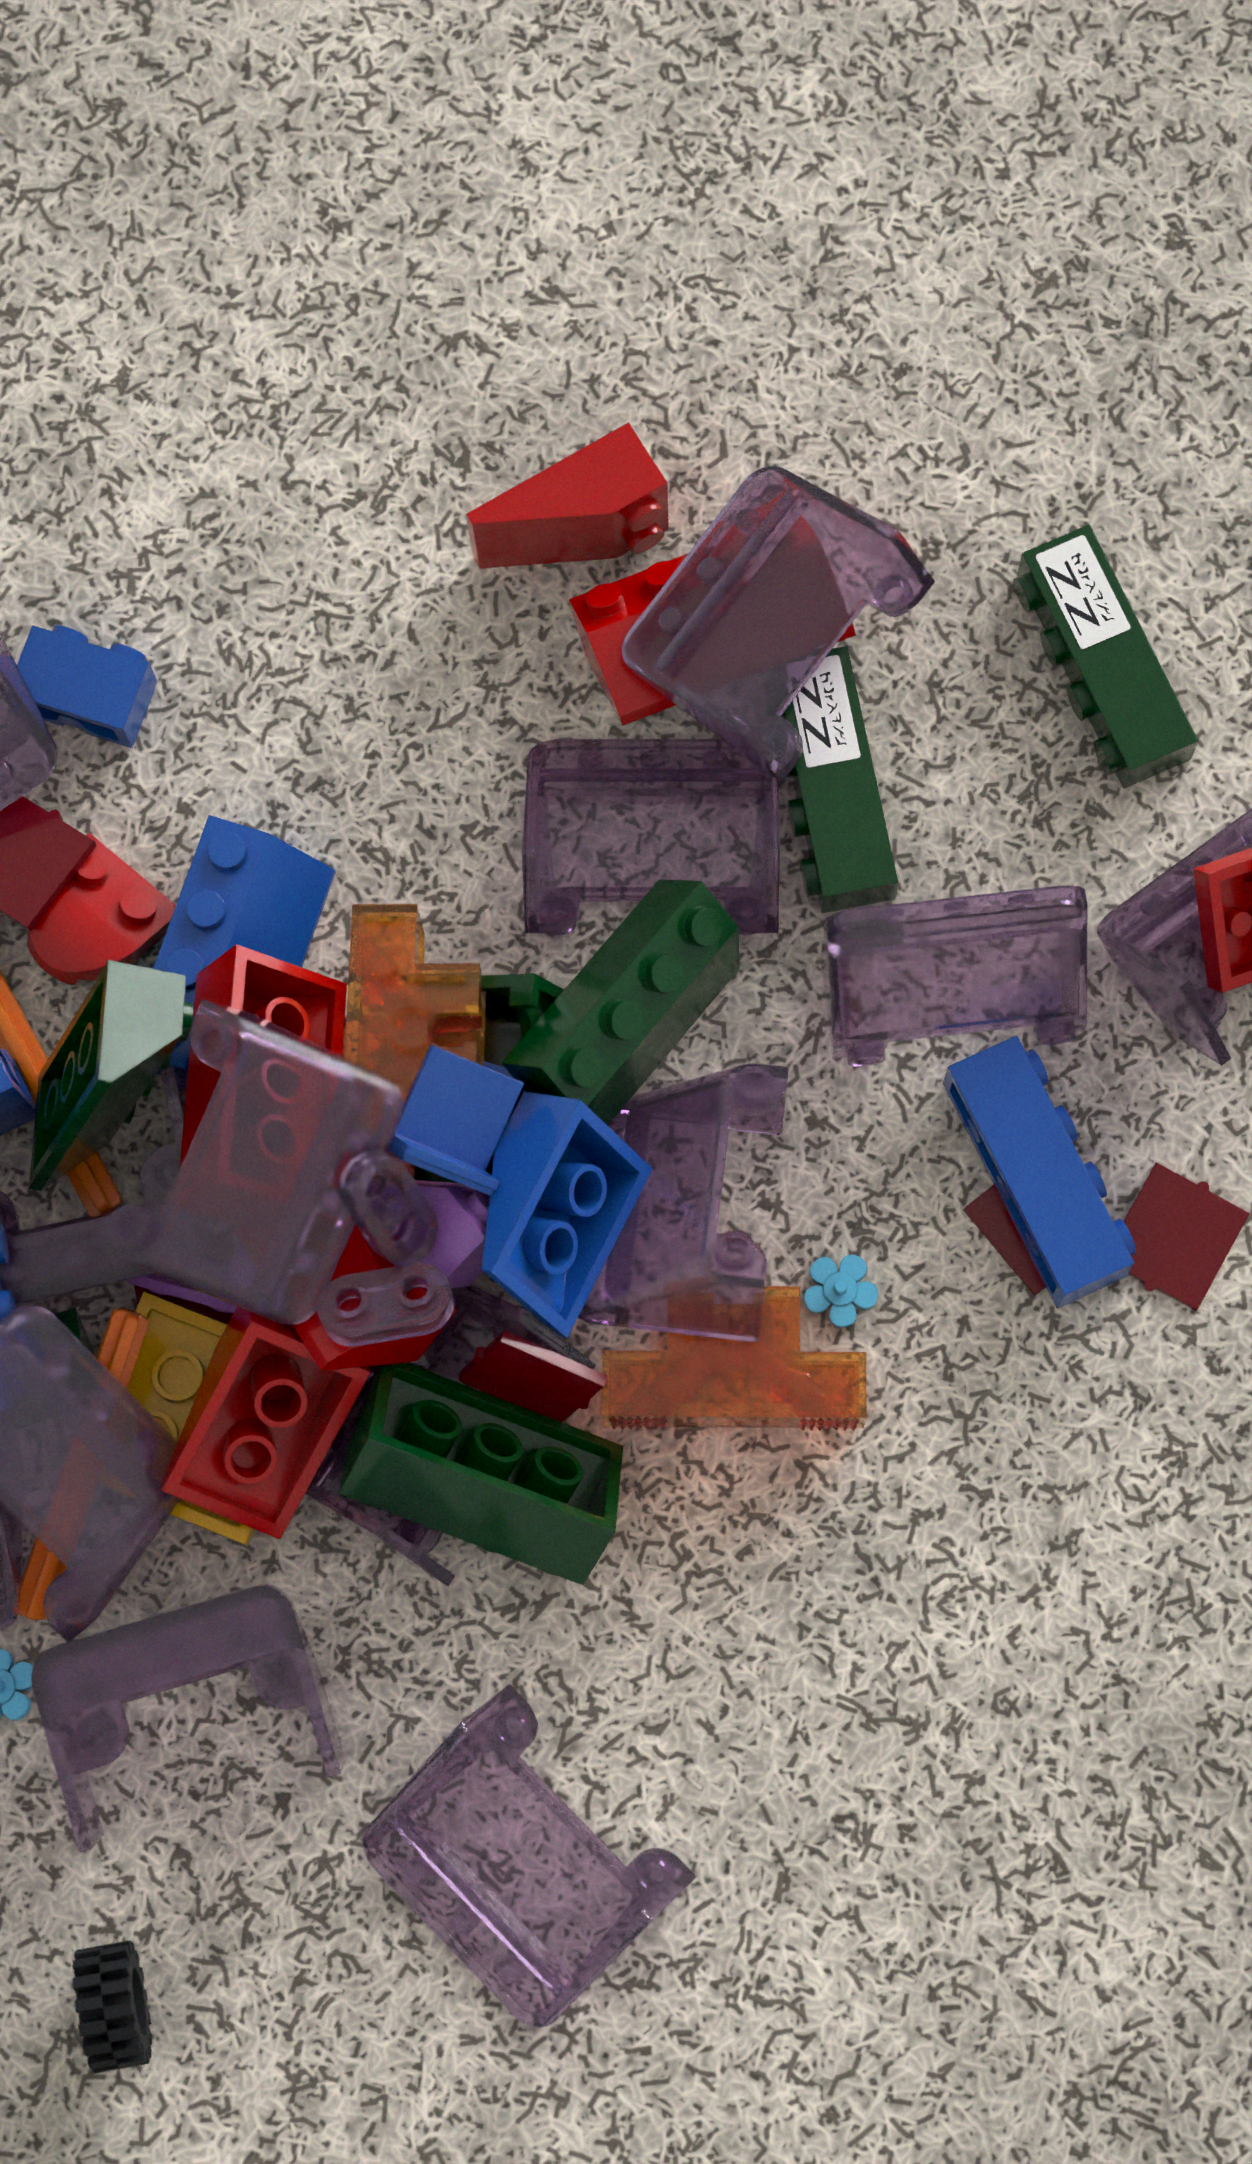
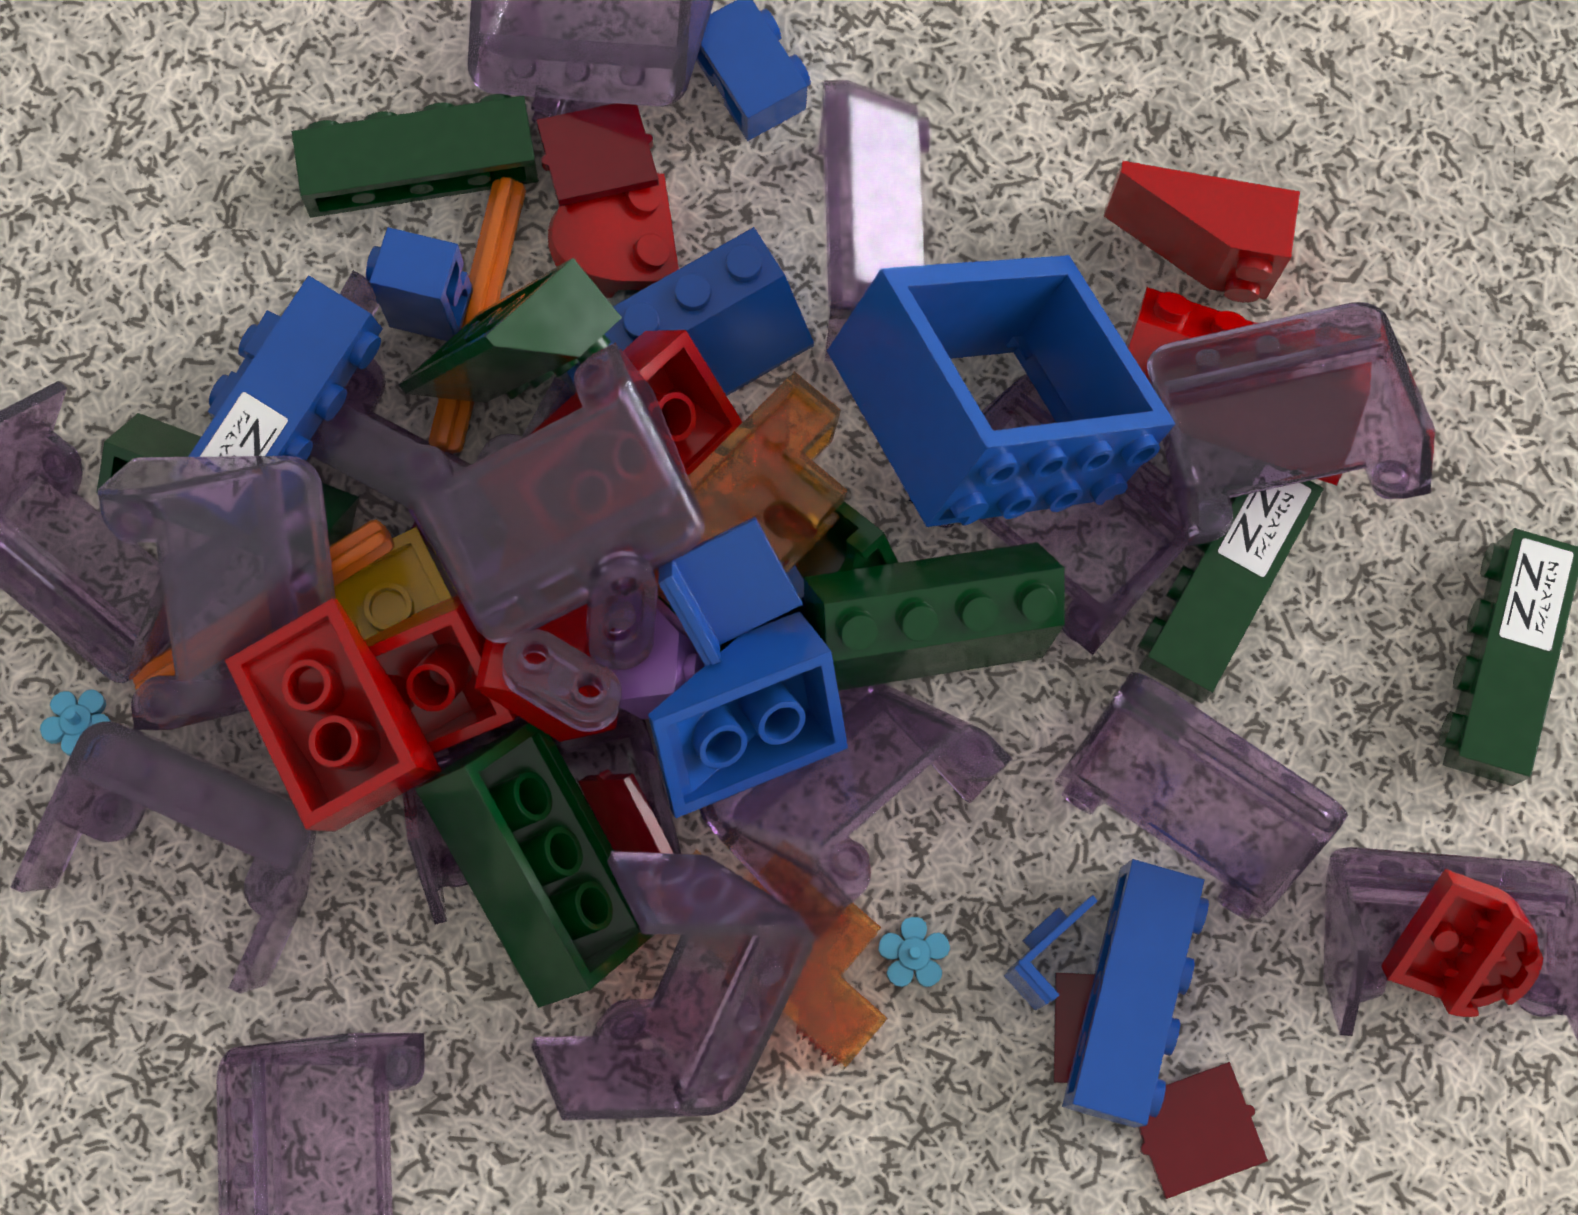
camera: 30 degrees right, 0 degrees up
(222, 1494) = (331, 718): none -> red slope
(306, 730) = (870, 190): none -> clear purple windscreen
(502, 854) = (932, 431): none -> blue window
(721, 1465) = (713, 1008): none -> clear purple windscreen
(943, 1230) = (1023, 974): none -> blue piece

